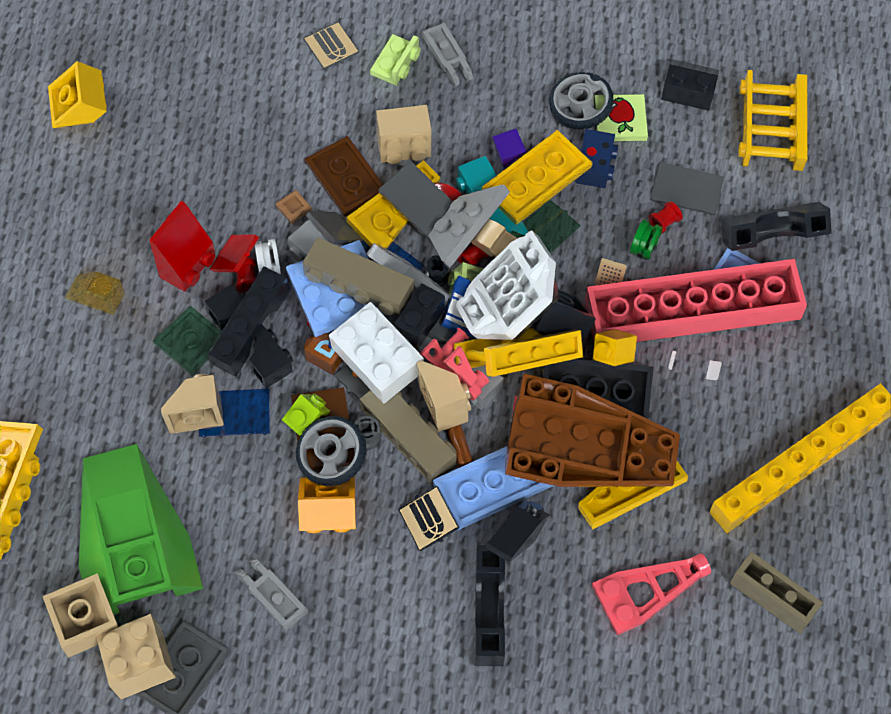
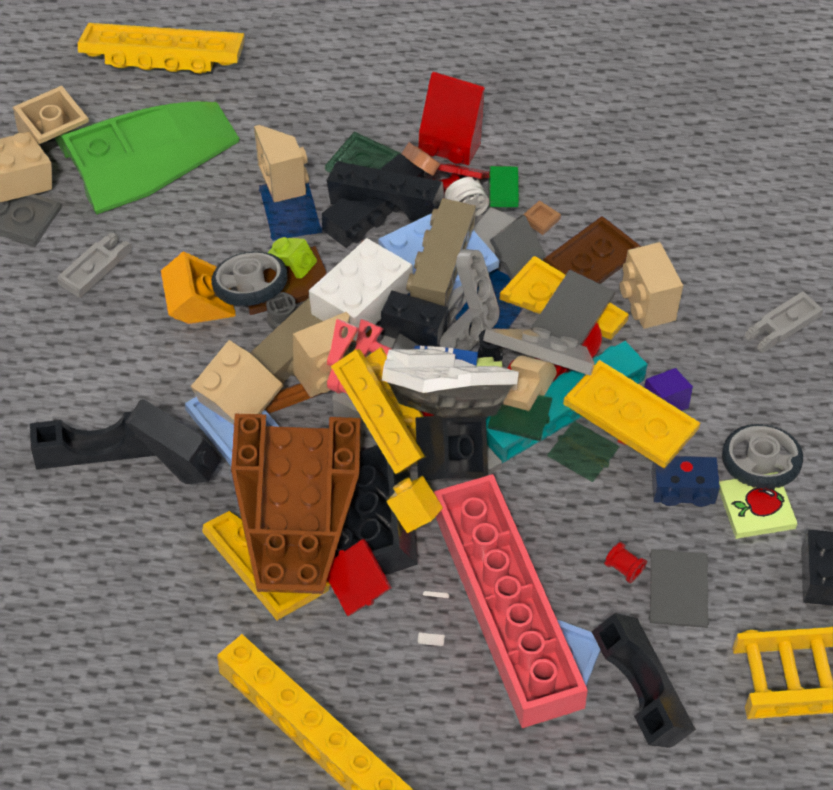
camera: 80 degrees right, 10 degrees down
(77, 96) = (617, 27): yellow slope -> none
(97, 291) = (395, 83): clear yellow slope -> none
(218, 283) = (421, 158): none -> nougat beam
(270, 223) = (503, 186): none -> green slope
(331, 45) = (759, 219): piece -> none
(395, 59) = (759, 276): yellowish green bracket -> none
(429, 518) = (179, 383): piece -> none
(460, 474) = (235, 384): none -> tan slope
(610, 272) = (529, 514): tan slope -> none
(618, 603) = (121, 566): coral plate -> none
(643, 237) = (584, 539): green wheel -> none
(663, 407) = (357, 578): none -> red piece
(776, 592) = (139, 717): dark tan brick -> none

